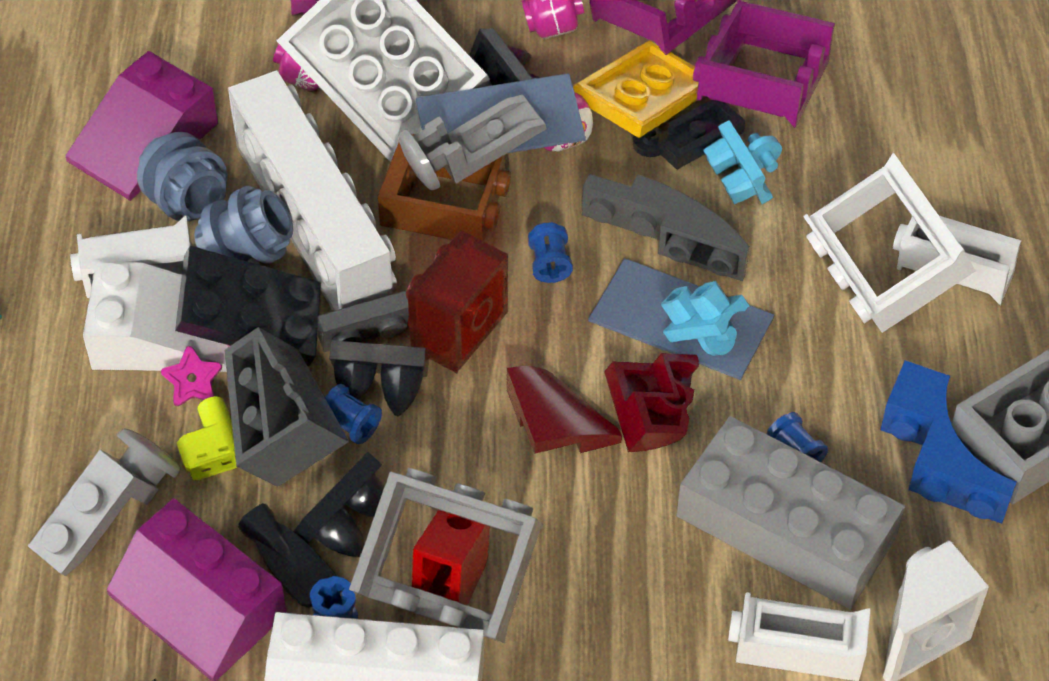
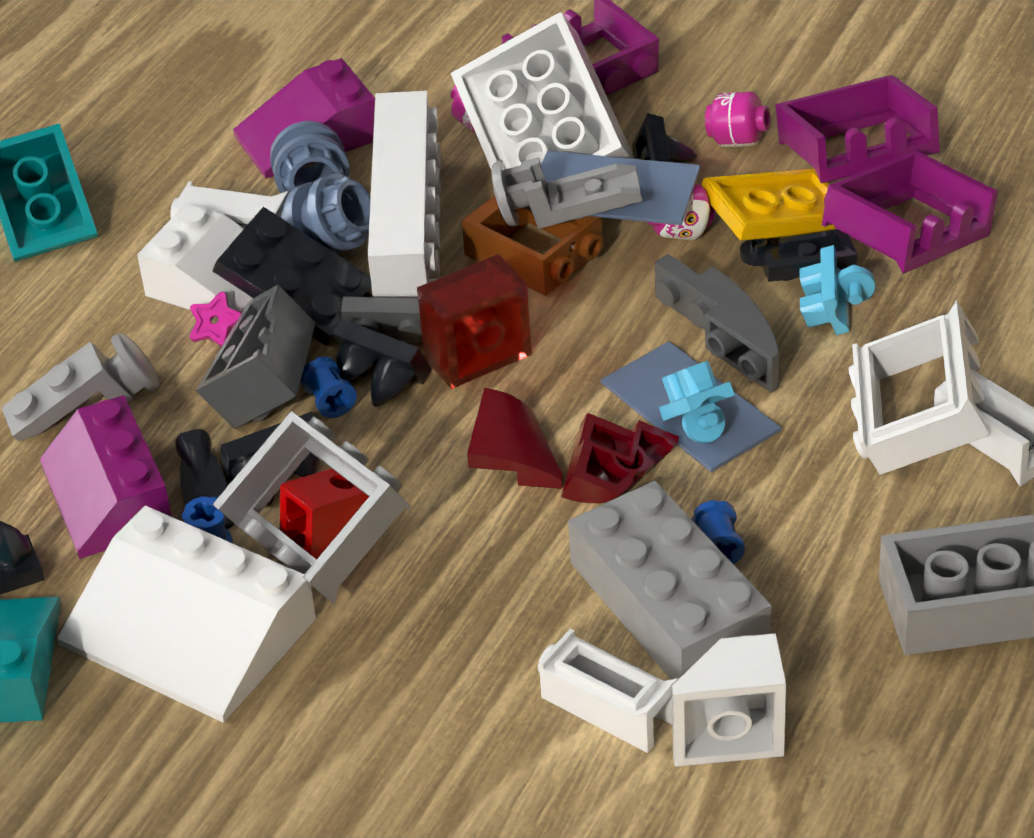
camera: 30 degrees right, 10 degrees down
(210, 445) = (186, 375): neon yellow piece -> none
(550, 252) = (585, 319): blue bush -> none
(944, 465) = (845, 590): blue arch -> none

